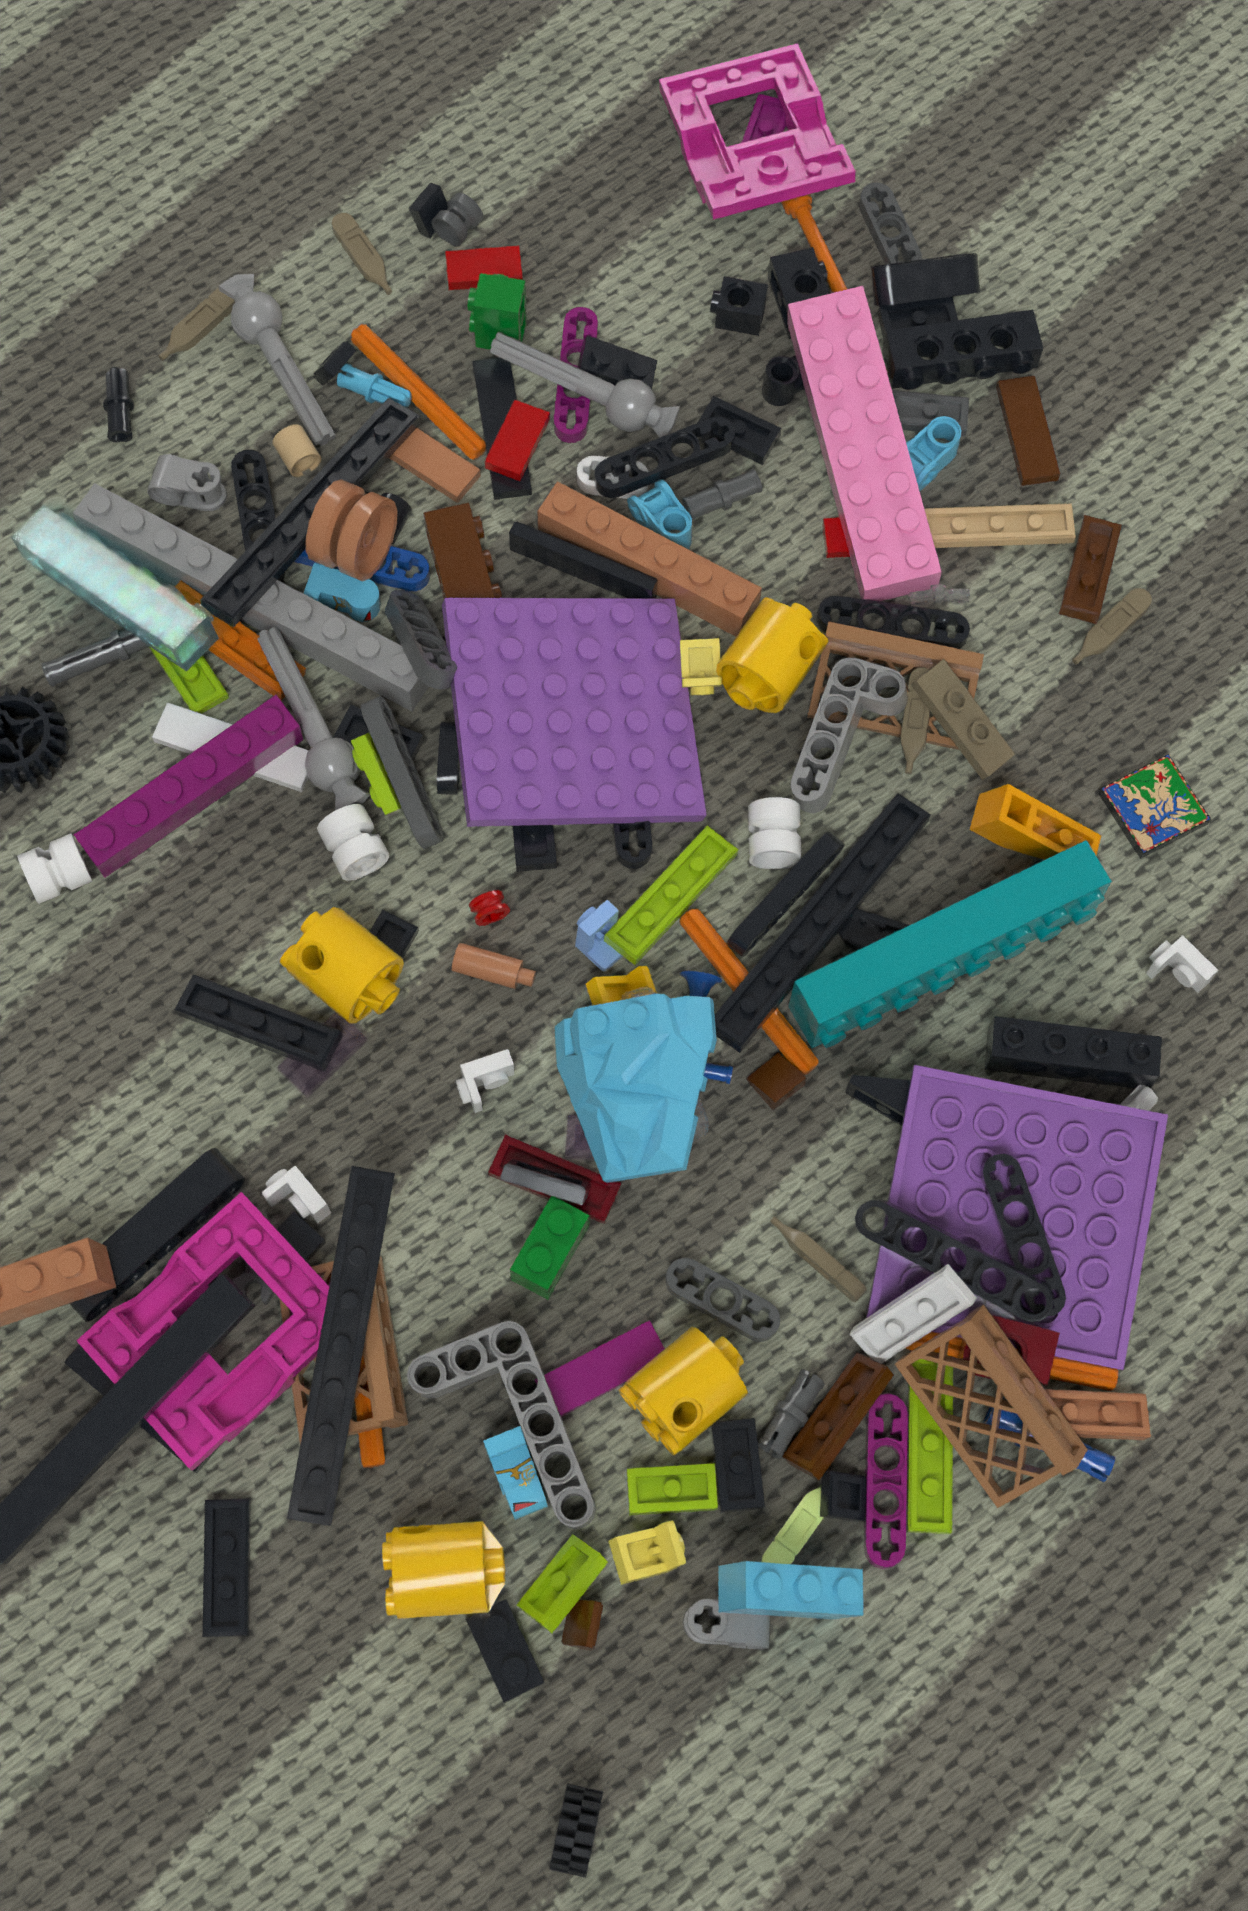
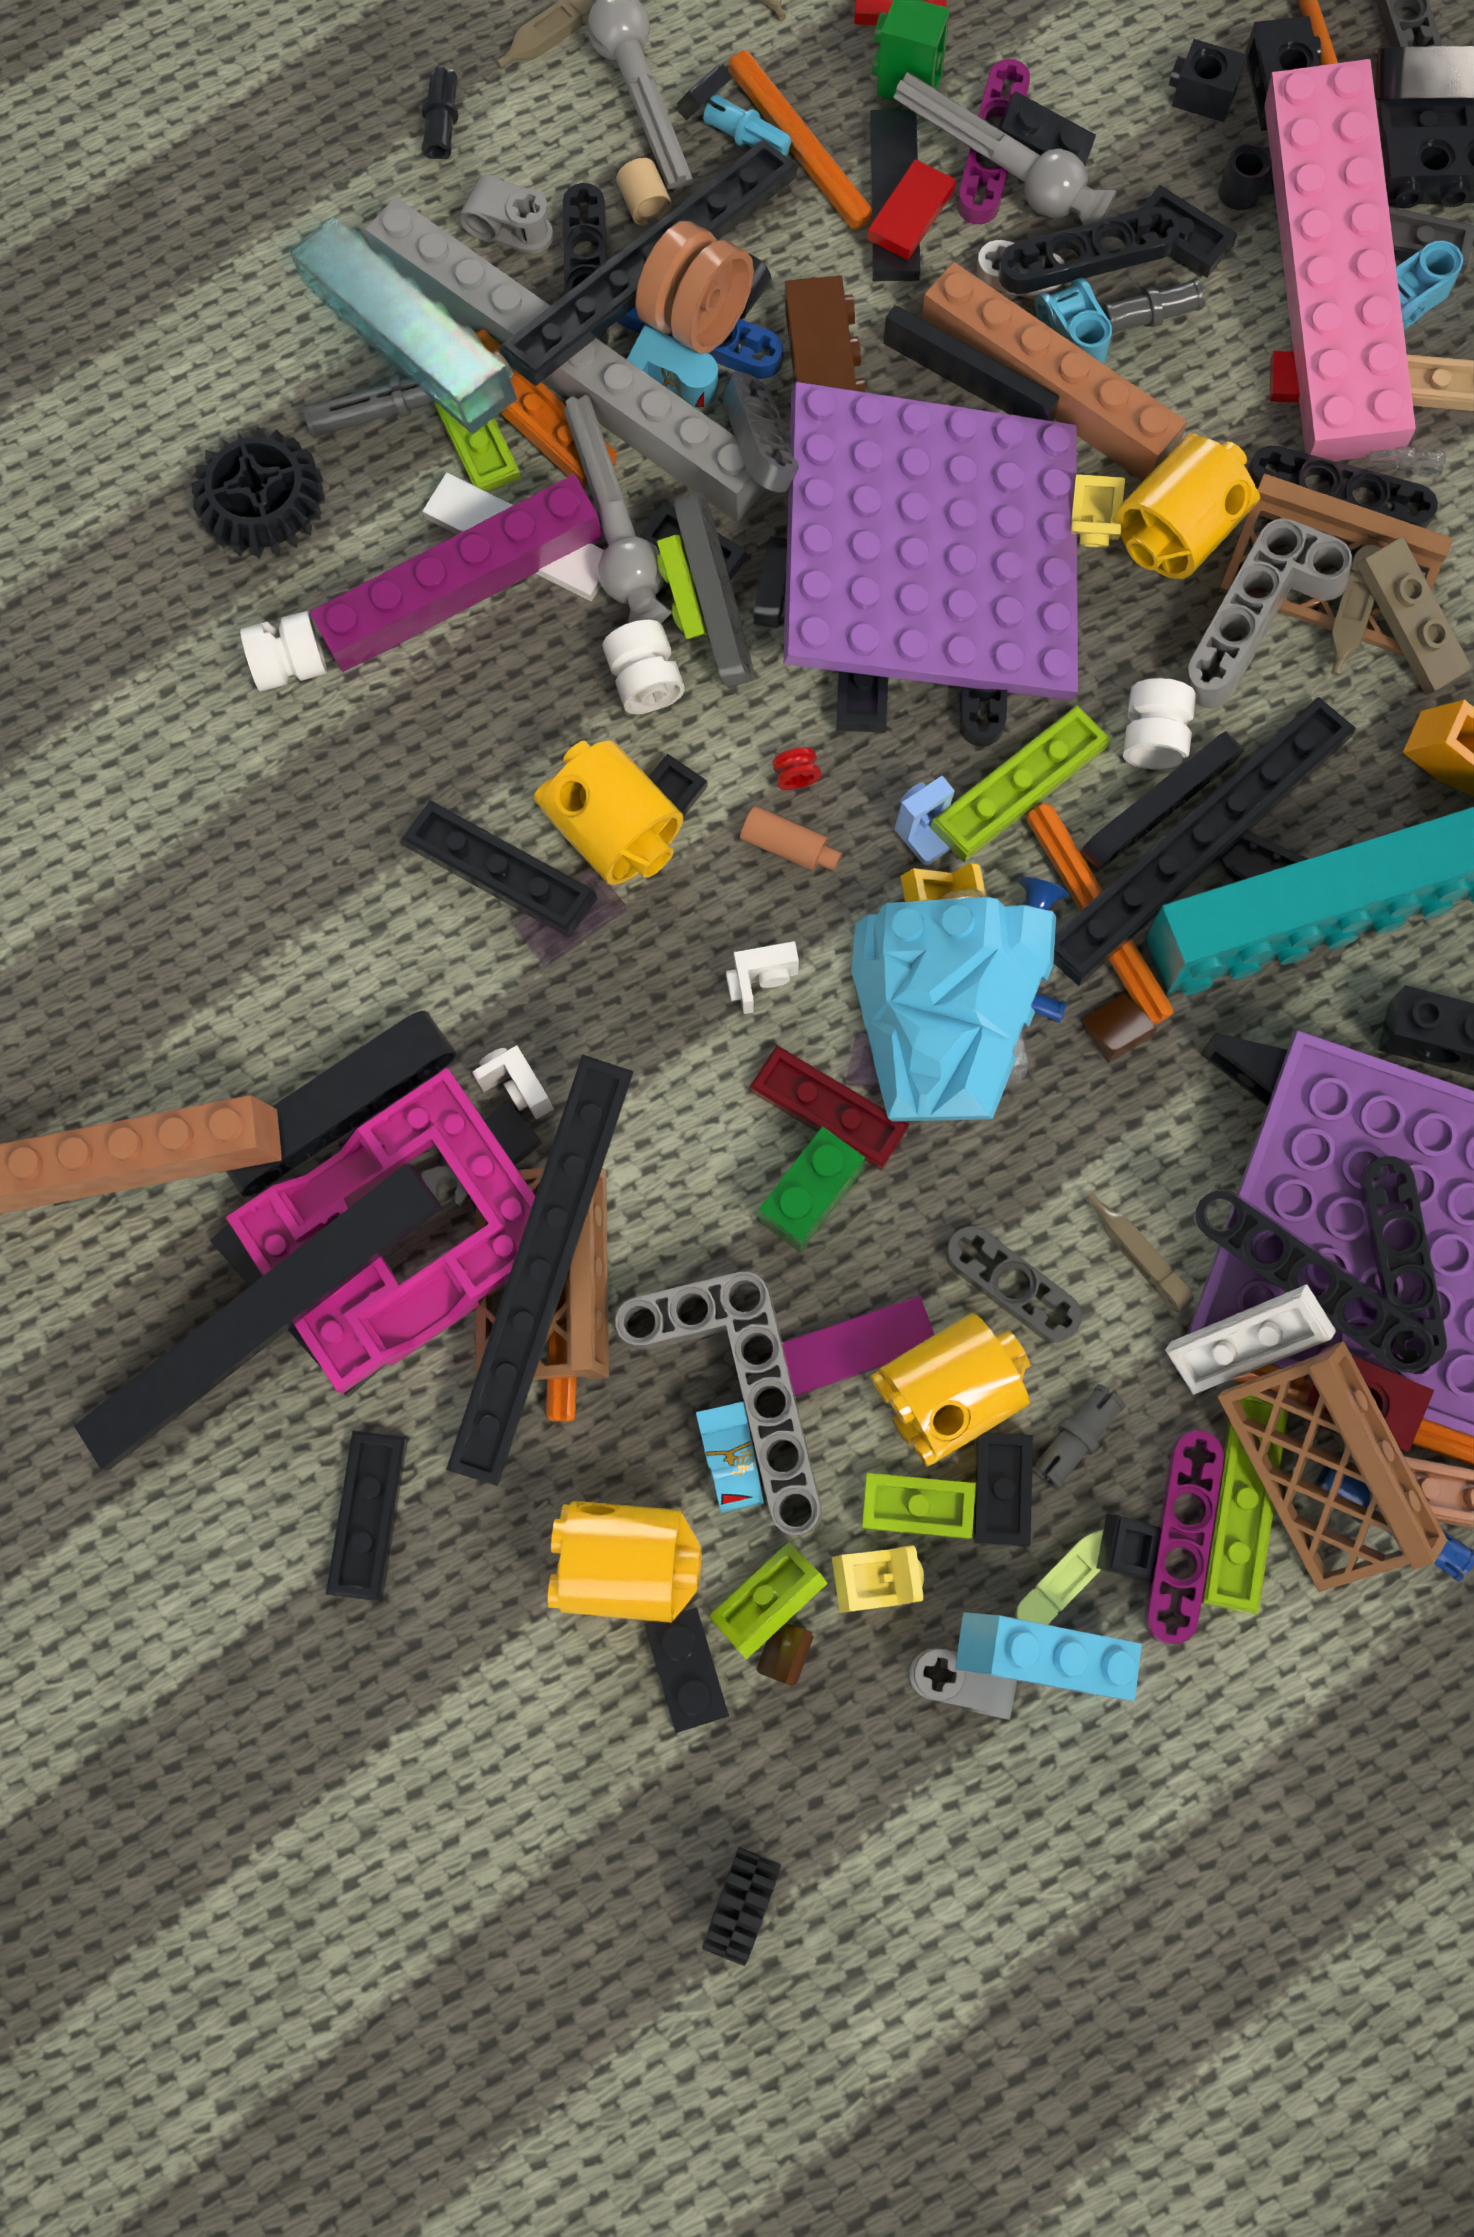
camera: 15 degrees right, 5 degrees up
(436, 465) = (809, 230): nougat tile -> none
(546, 1181) = (818, 1108): black tile -> none
(838, 1416) = (1136, 1448): reddish brown tile -> none

